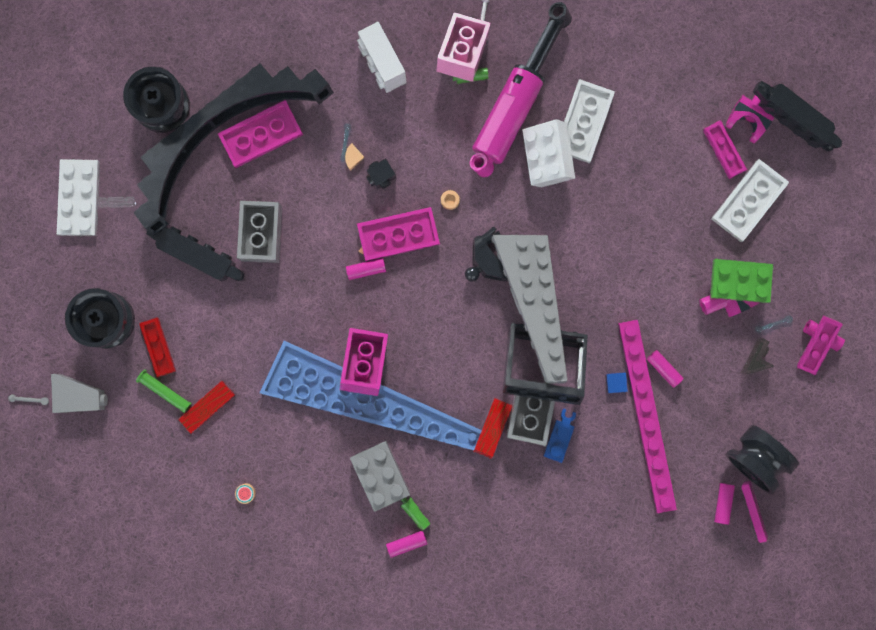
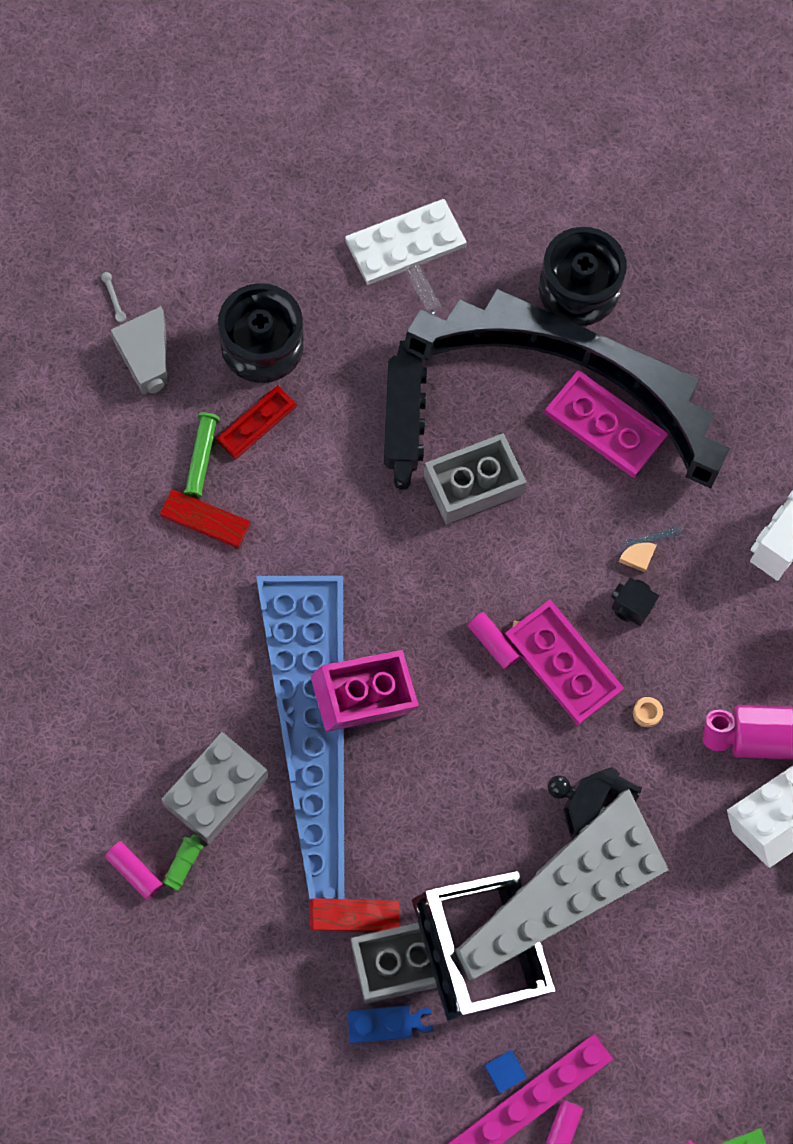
camera: 60 degrees right, 15 degrees down
(245, 493) = (109, 620): tile -> none

